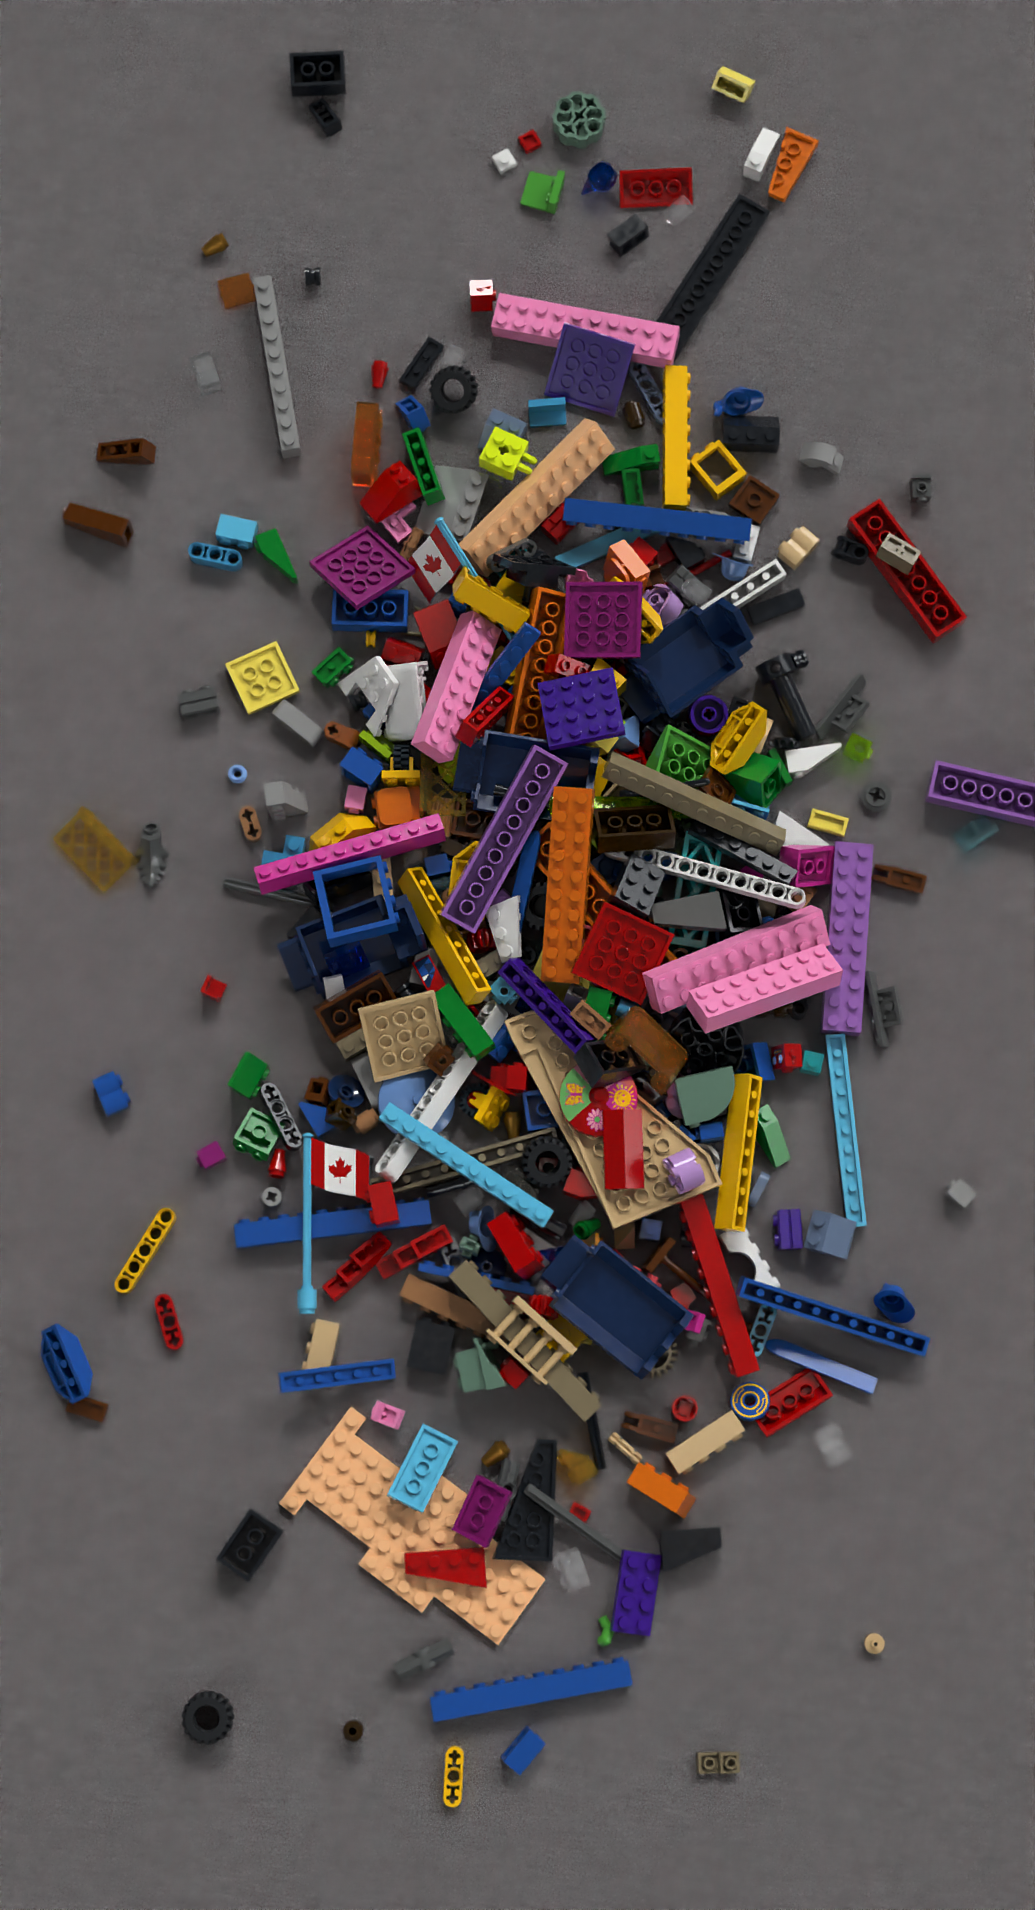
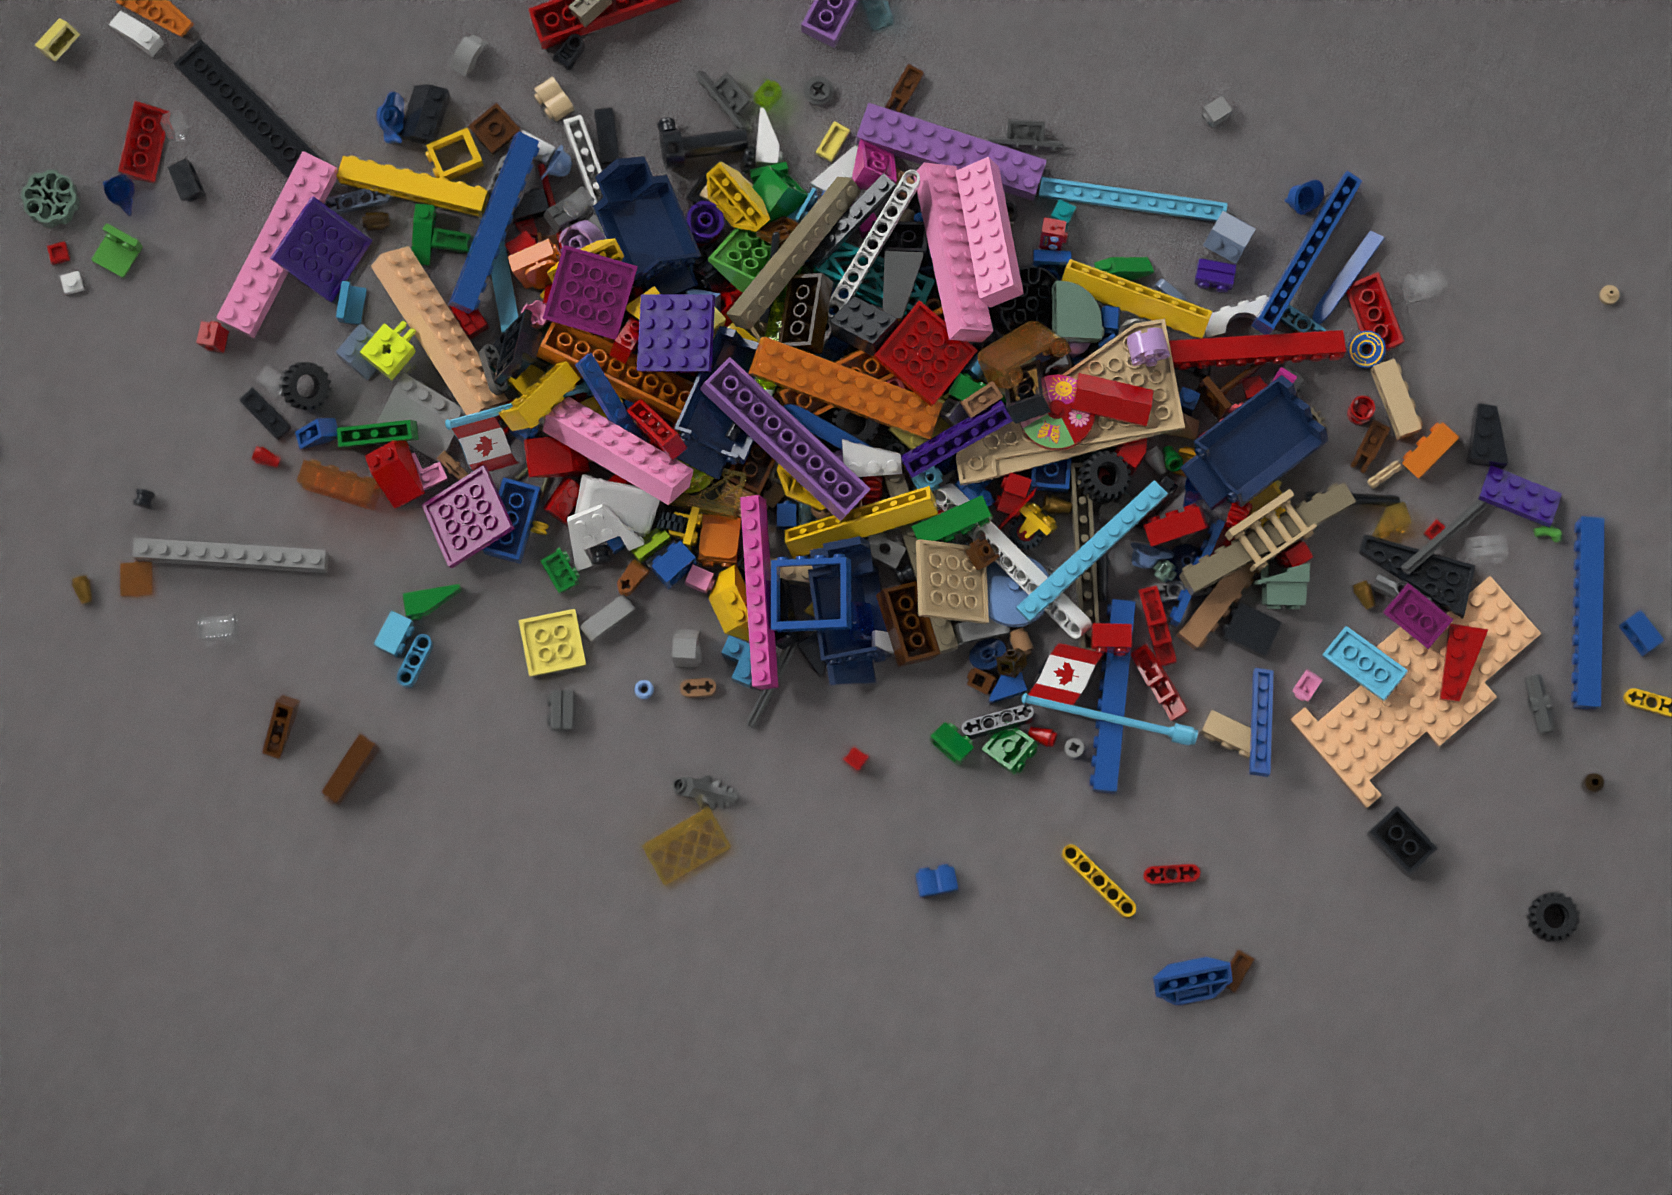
camera: 75 degrees left, 0 degrees up
(210, 1155) = (1020, 798): magenta brick -> none
(428, 974) = (895, 546): slope -> none

